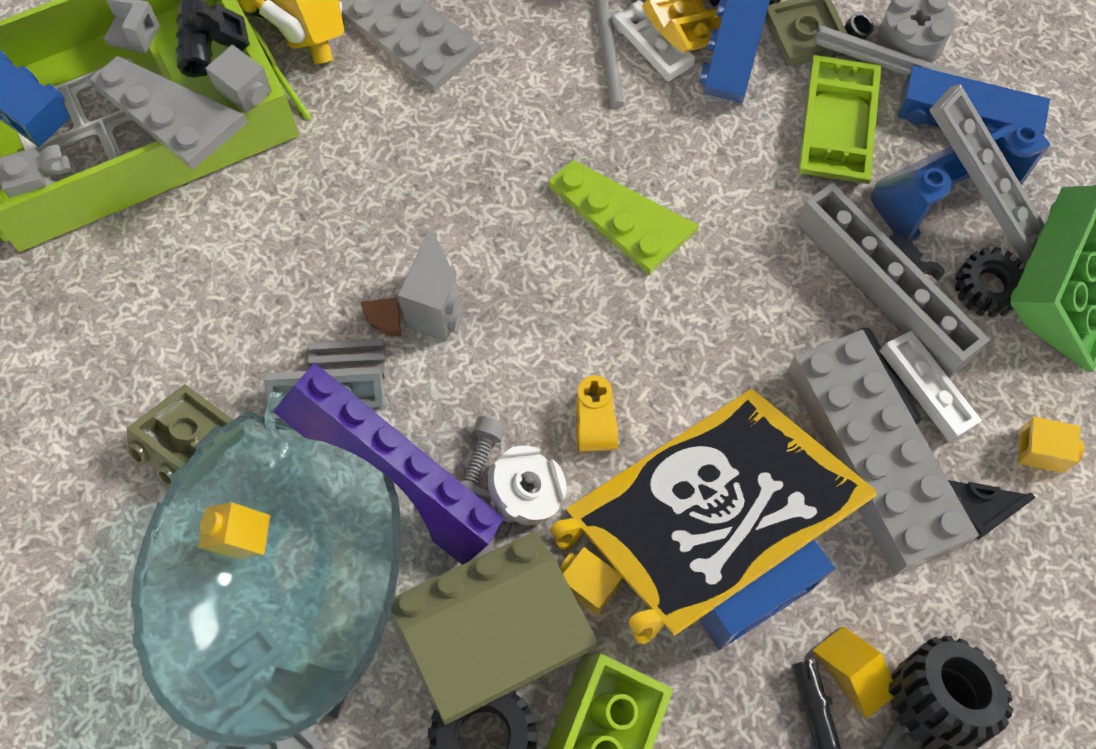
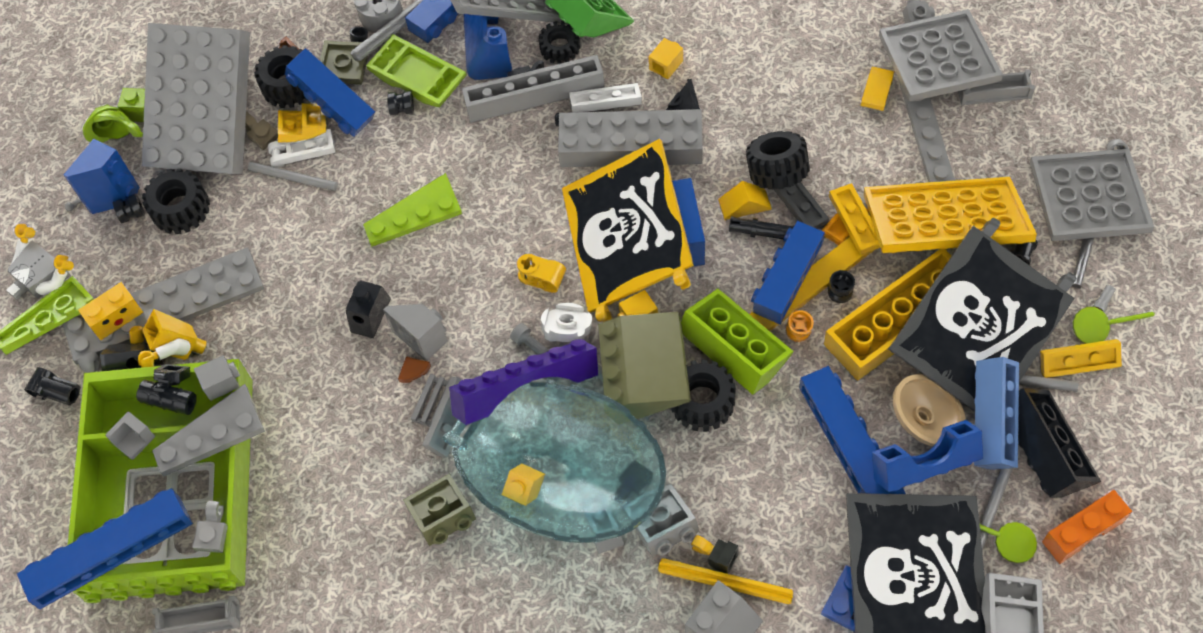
camera: 60 degrees left, 5 degrees down
(447, 213) = (367, 305): none -> black torso
(779, 122) = (400, 103): none -> black wheel

